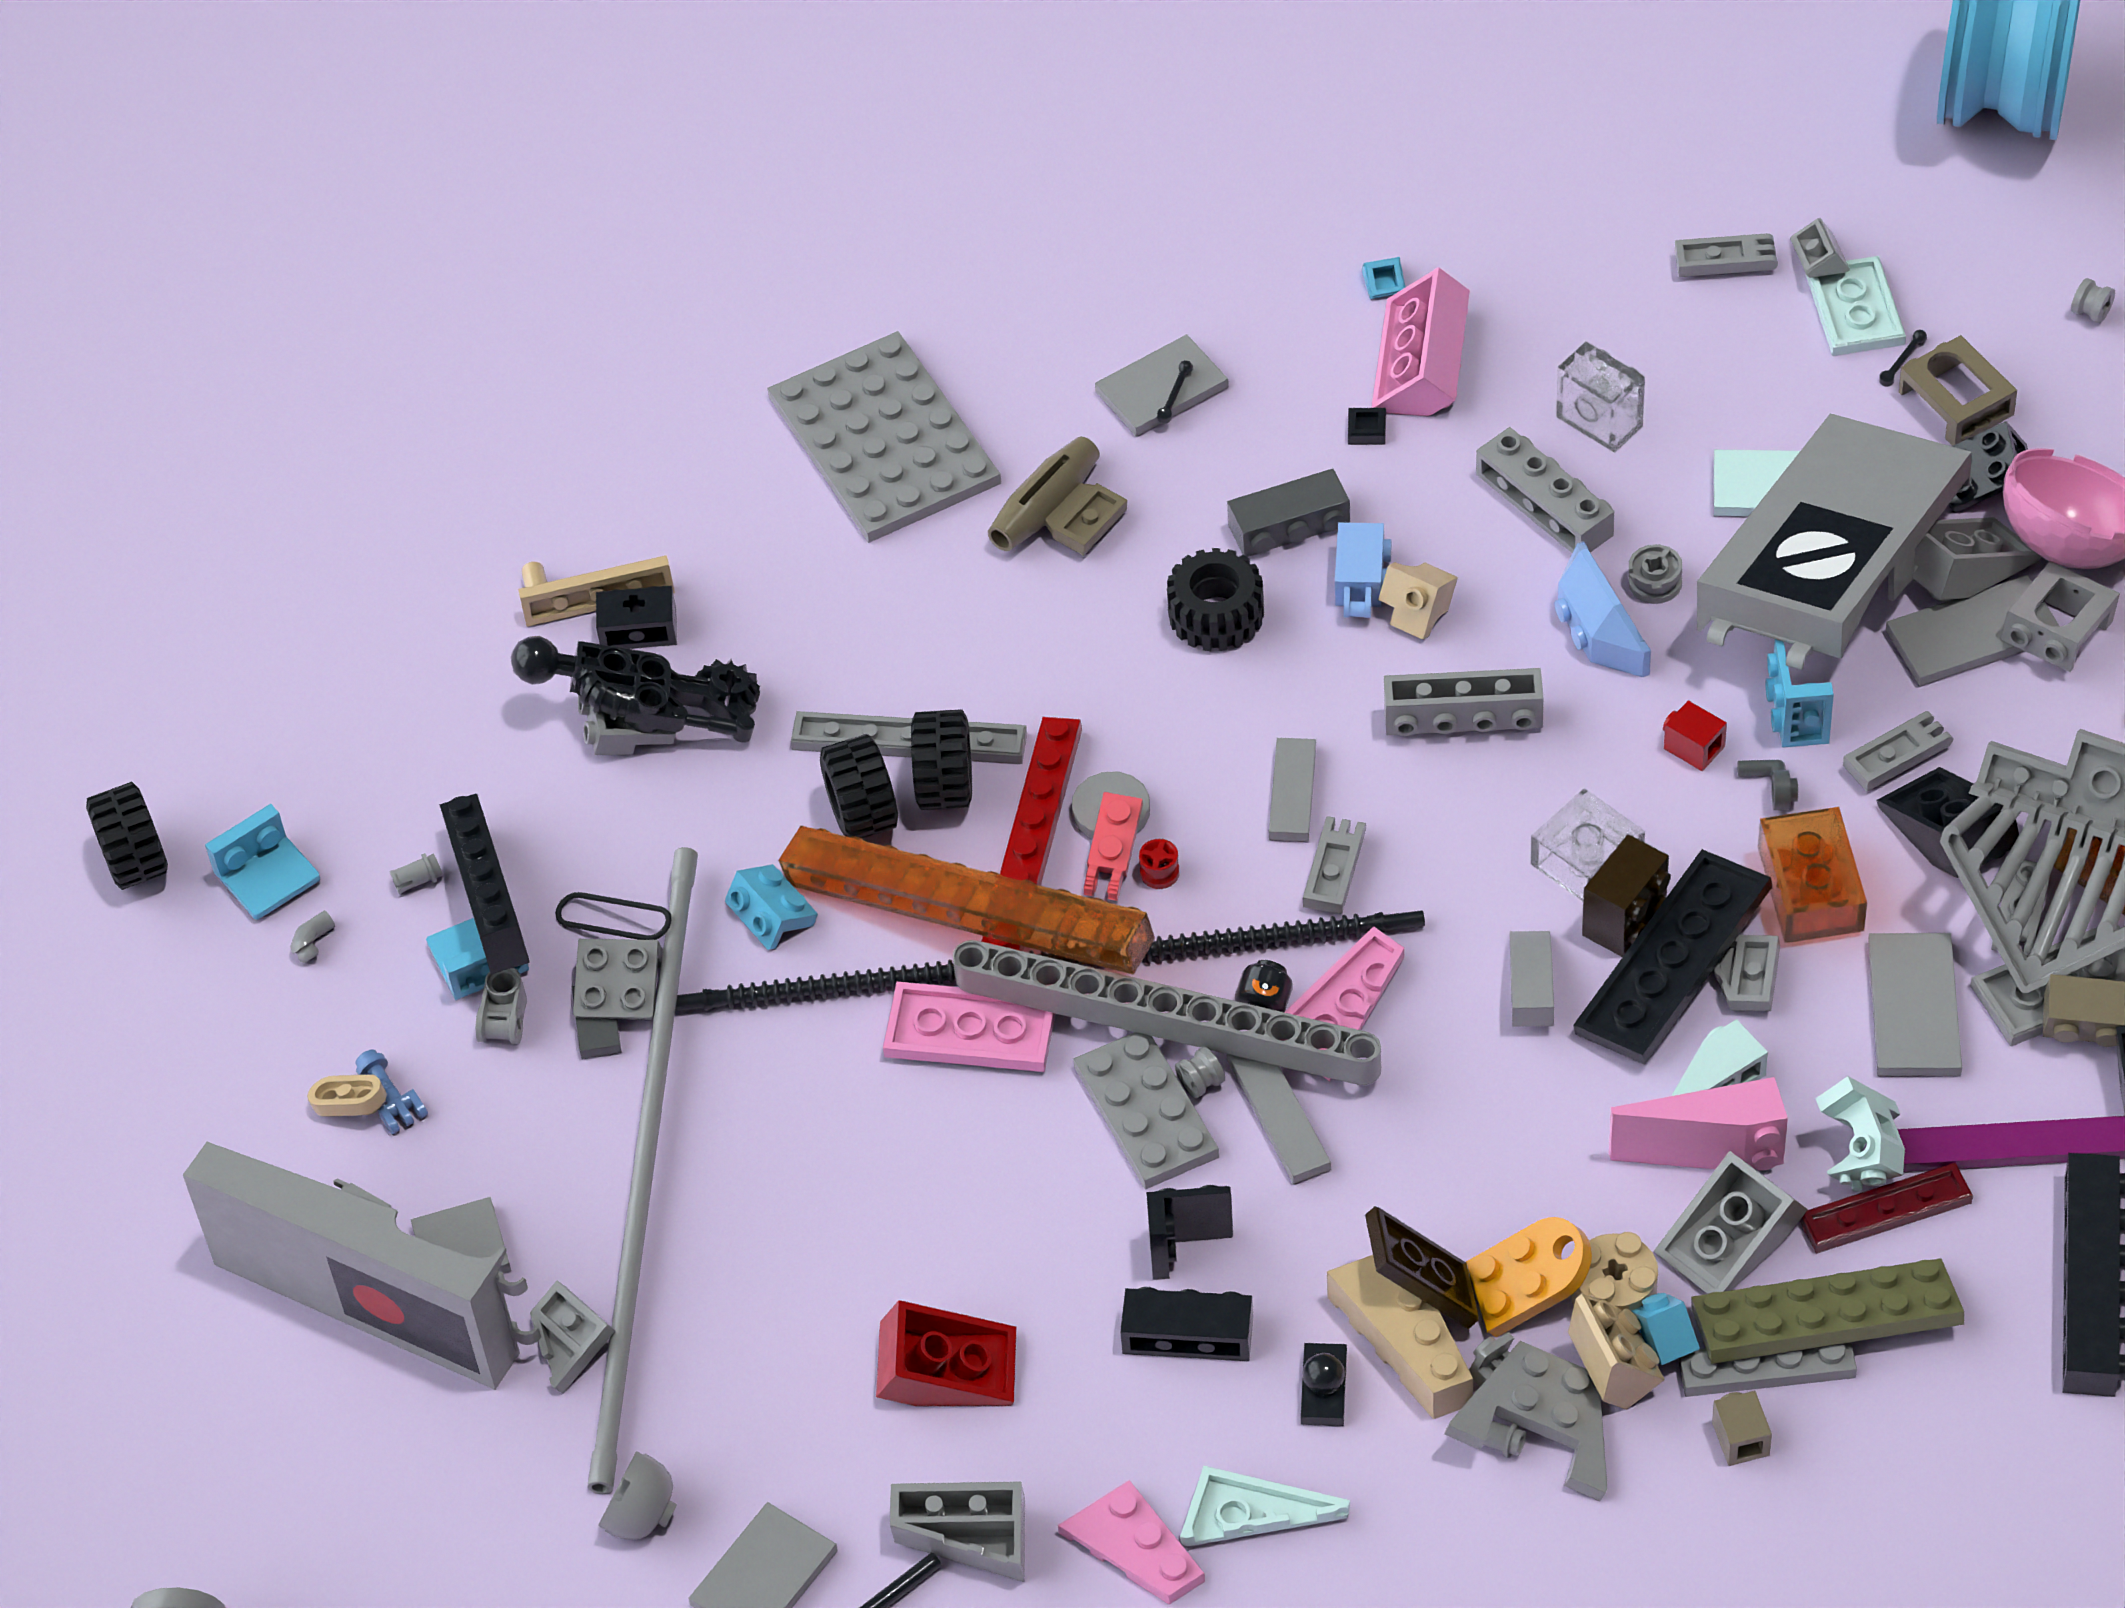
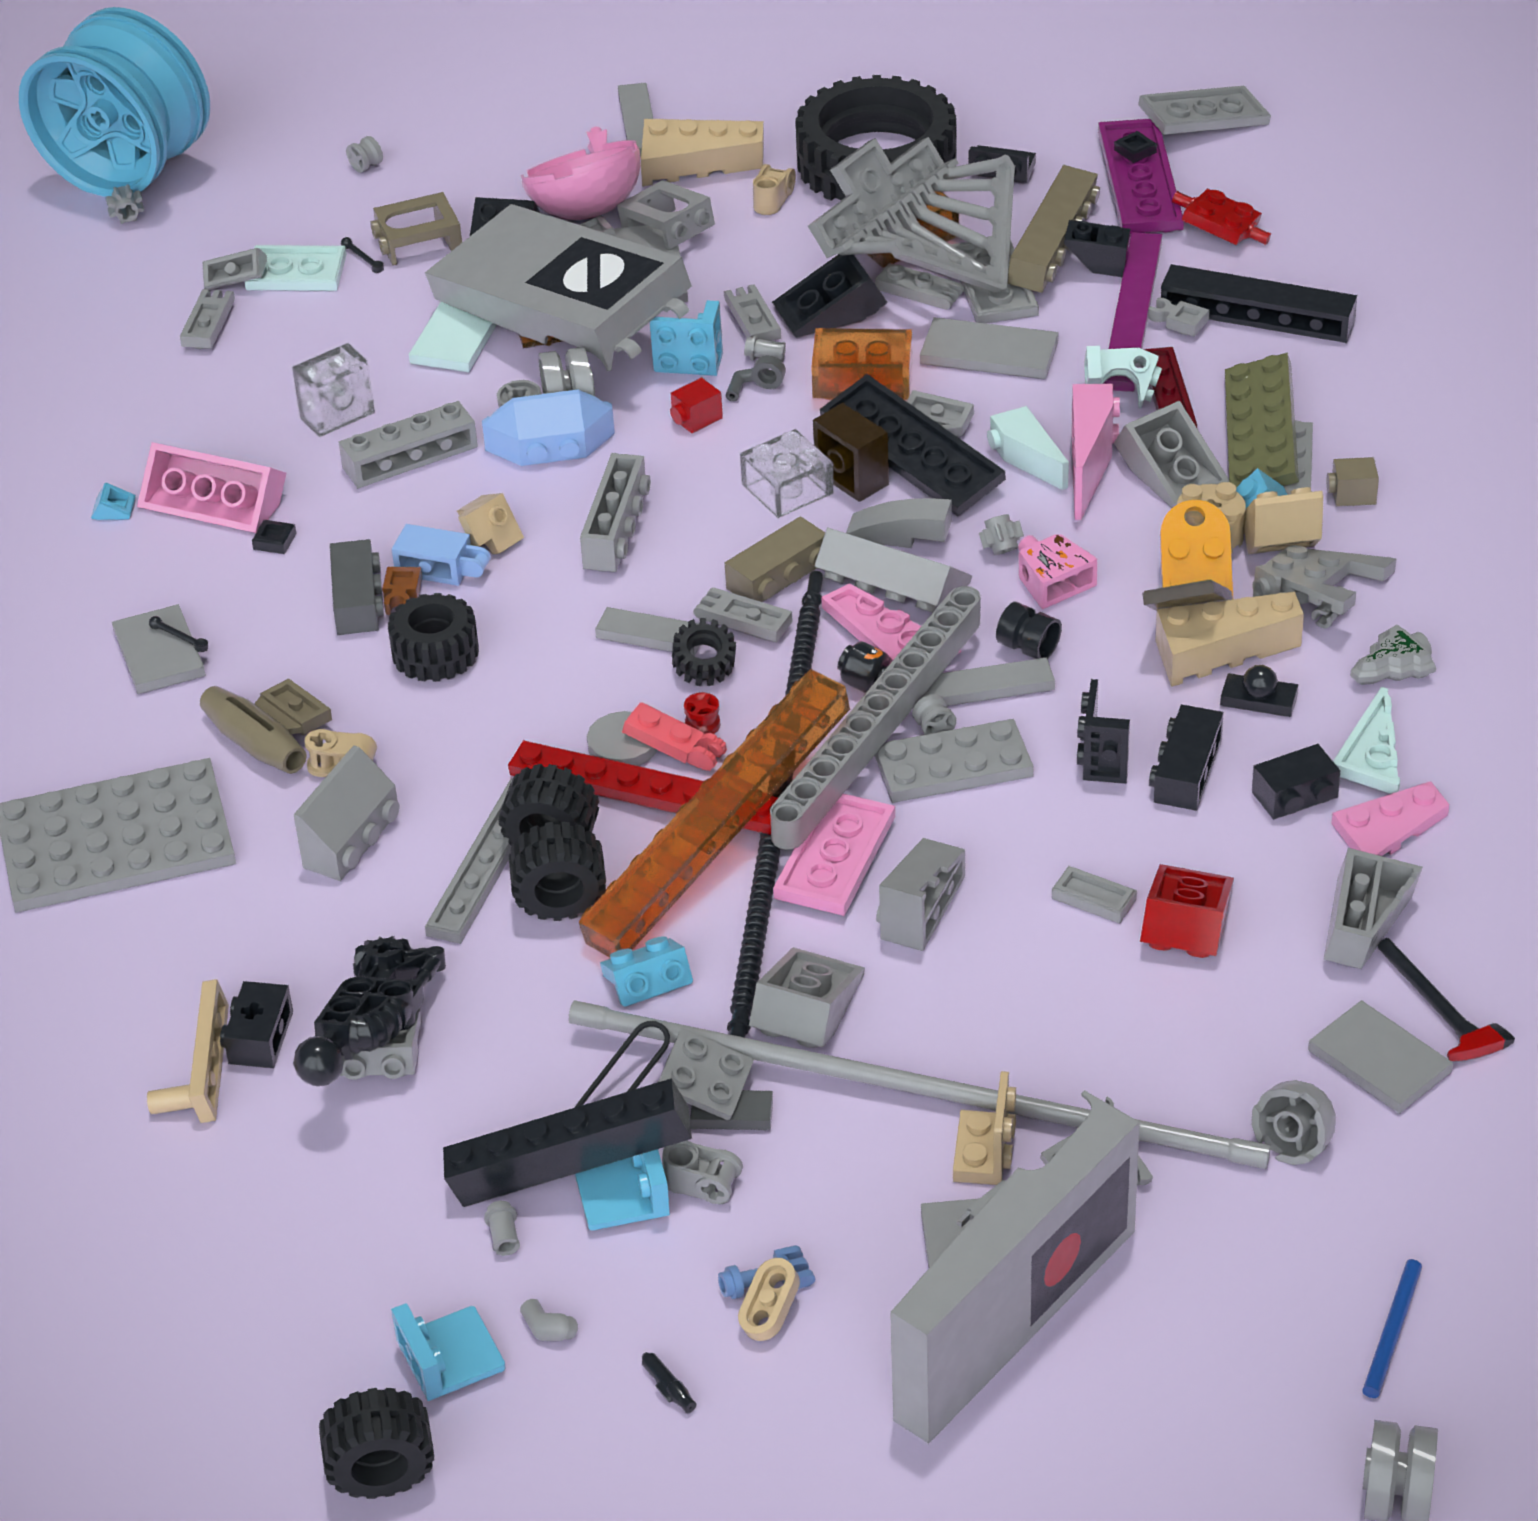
camera: 80 degrees left, 10 degrees down
(250, 1046) = (667, 1383): none -> black piece
(577, 1235) = (982, 1139): none -> tan bracket
(753, 1043) = (804, 997): none -> light grey slope
(912, 1108) = (919, 893): none -> light grey wedge
(919, 599) = (345, 815): none -> light grey slope
(961, 1274) = (1094, 894): none -> light grey tile
(1023, 572) = (334, 749): none -> tan piece
(1168, 1436) = (1295, 781): none -> black brick
(1259, 857) = (703, 668): none -> black tyre
(1304, 553) = (400, 585): none -> dark orange plate
(1361, 1133) = (1030, 631): none -> black wheel
(1415, 1512) = (1395, 657): none -> light grey rock
(1429, 874) = (775, 561): none -> dark tan brick
(1445, 985) = (887, 569): none -> light grey slope
(1486, 1139) = (1055, 569): none -> bright pink torso
(1531, 1076) = (1001, 534): none -> light grey gear
(1663, 599) = (576, 376): none -> light grey wheel
(1831, 769) = (759, 347): none -> light grey pin
(1909, 117) = (125, 204): none -> light grey gear
(2038, 1194) = (1184, 317): none -> light grey plate

